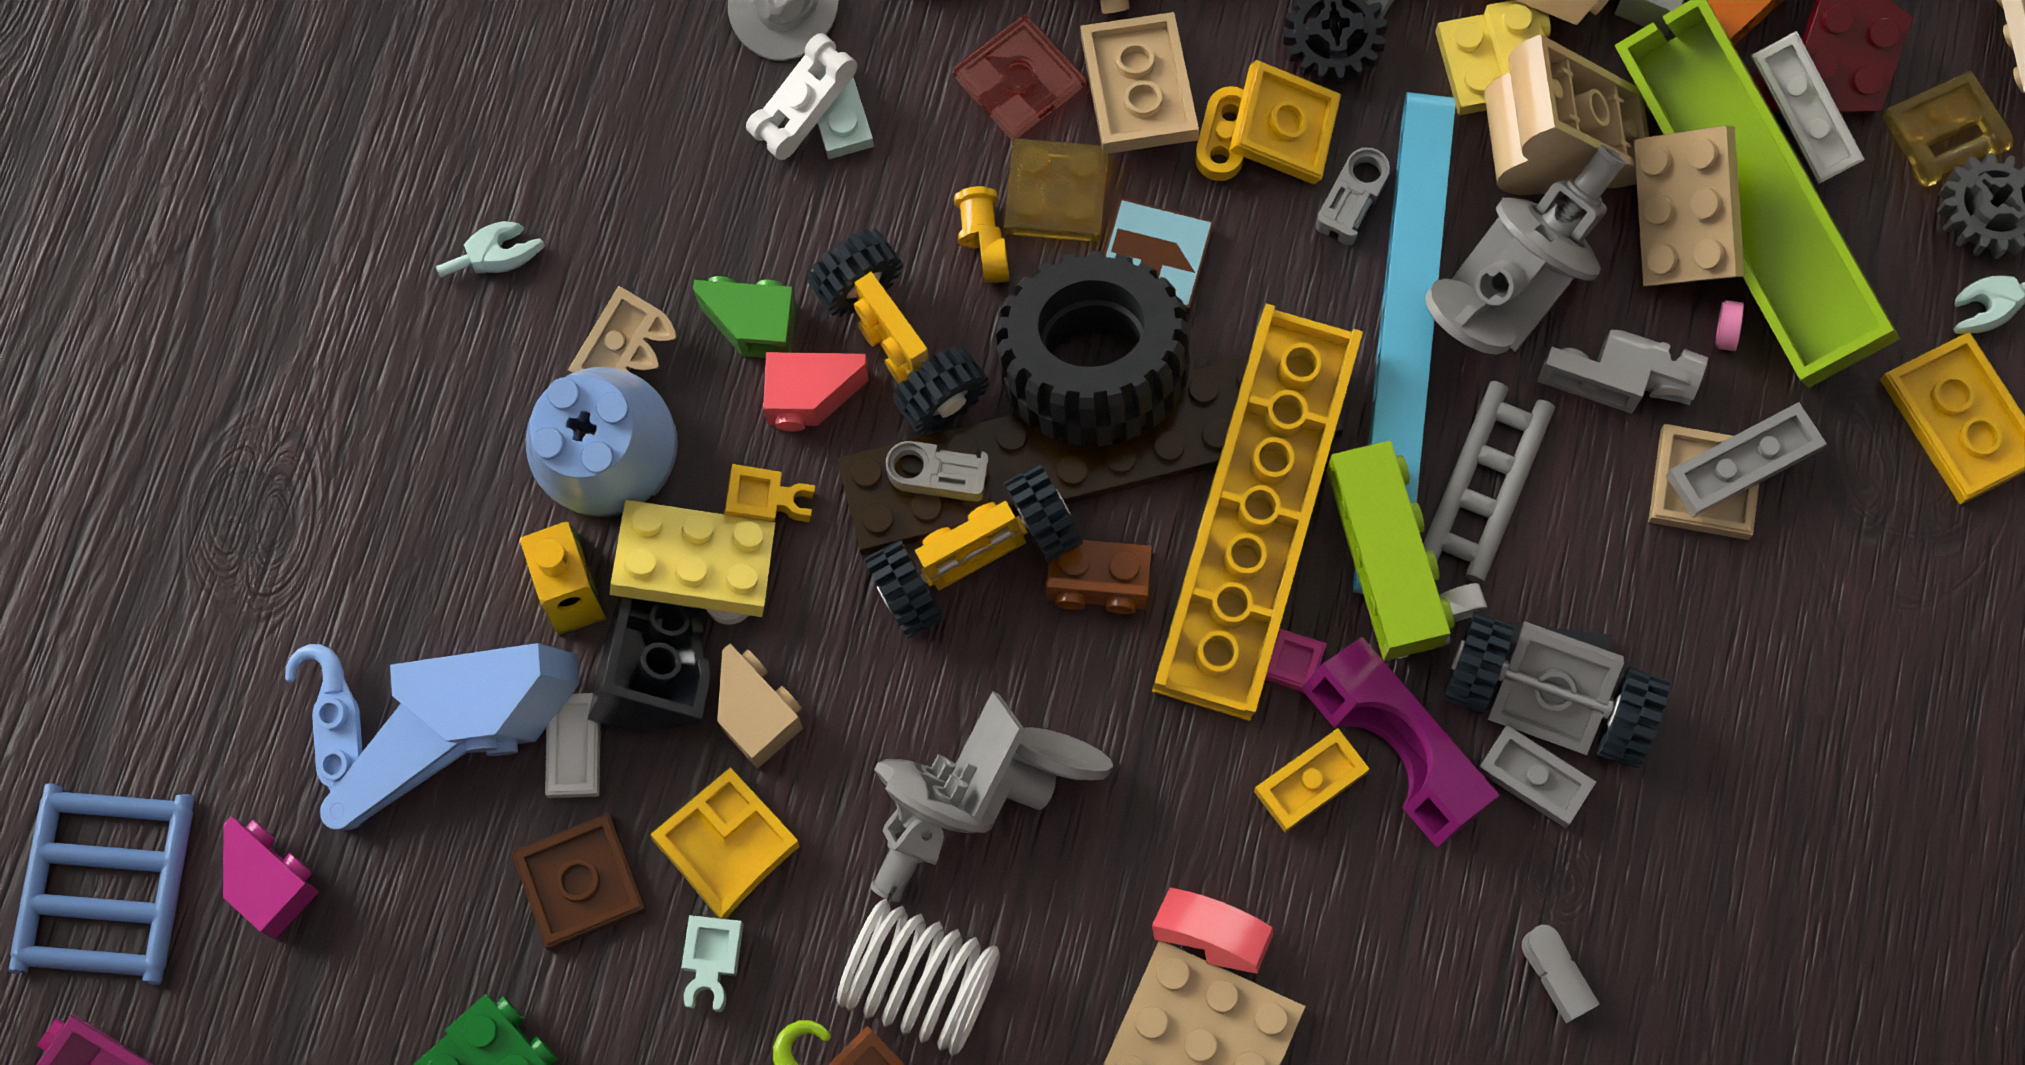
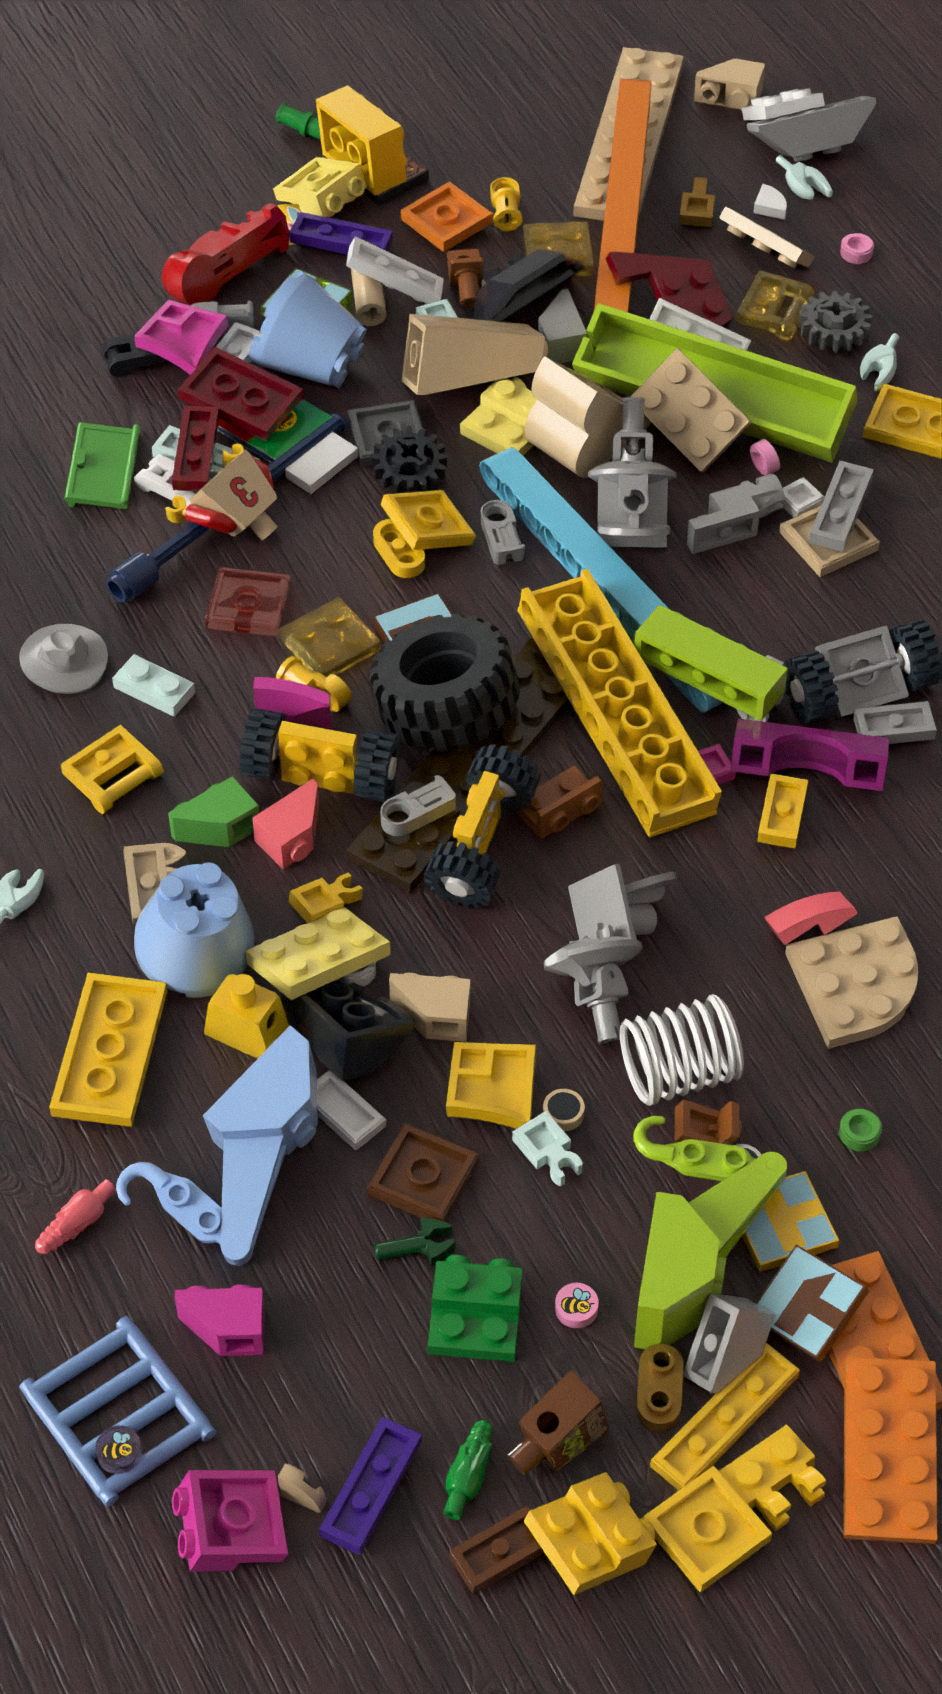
camera: 45 degrees left, 20 degrees down
(53, 931) = (118, 1449): none -> clear purple tile
(239, 652) = (75, 1216): none -> coral piece
(422, 497) = (109, 1050): none -> yellow plate
(504, 951) = (420, 1243): none -> dark green bar
(706, 161) = (105, 760): none -> yellow plate
(769, 929) = (565, 1108): none -> tile
(802, 97) = (132, 685): white plate -> none
(918, 252) = (296, 700): none -> dark pink plate
(1139, 83) = (325, 553): tan plate -> none
(1514, 467) = (725, 596): light grey bar -> none
(1723, 406) = (801, 497): none -> white tile

